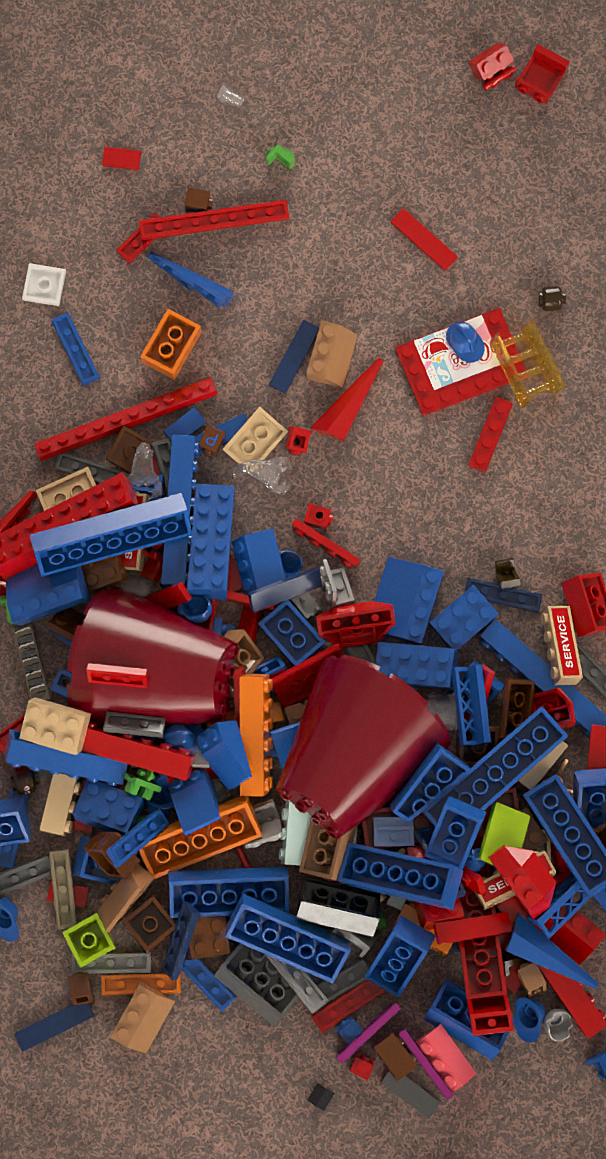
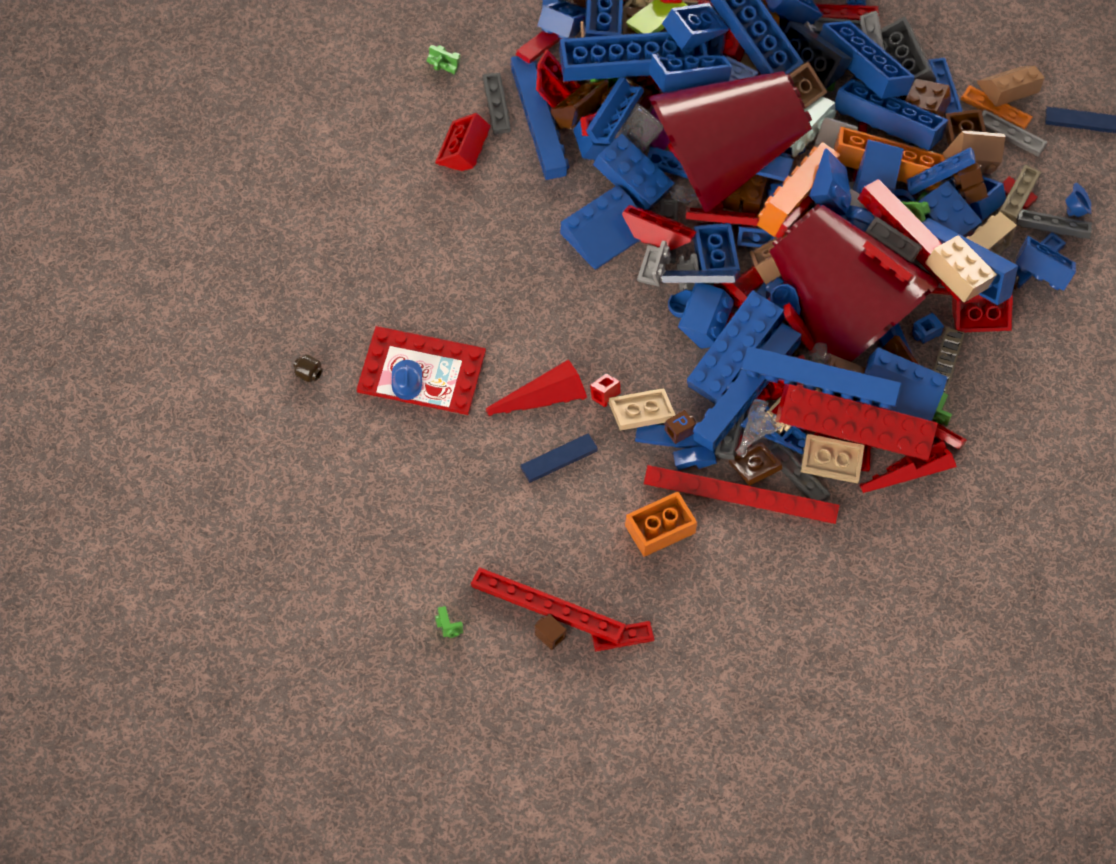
camera: 150 degrees left, 20 degrees down
(44, 284) = (739, 651): white tile -> none
(75, 349) = (747, 580): blue tile -> none
(80, 988) = (1046, 125): reddish brown brick -> none
(89, 940) = (1021, 146): lime slope -> none
(121, 158) = (592, 717): red tile -> none
(180, 940) = (949, 103): dark blue tile -> none
(210, 290) = (595, 549): blue wedge -> none
(230, 96) = (454, 709): clear cone -> none
(266, 471) = (651, 377): clear animal -> none
(311, 520) = (631, 326): red brick -> none
(331, 354) = (528, 438): medium nougat slope -> none
(331, 548) = (638, 299): red plate -> none
(424, 239) = (375, 481): red tile -> none
(463, 618) = (569, 186): blue brick -> none
(490, 62) = (197, 582): red brick -> none
(490, 434) = (441, 304): red plate -> none
(506, 573) = (511, 197): dark brown bracket -> none
(510, 597) = (524, 191): dark blue tile -> none
(539, 351) = (356, 320): clear yellow fence -> none
(542, 74) = (163, 549): red panel -> none
(561, 645) = (509, 123): brick -> none

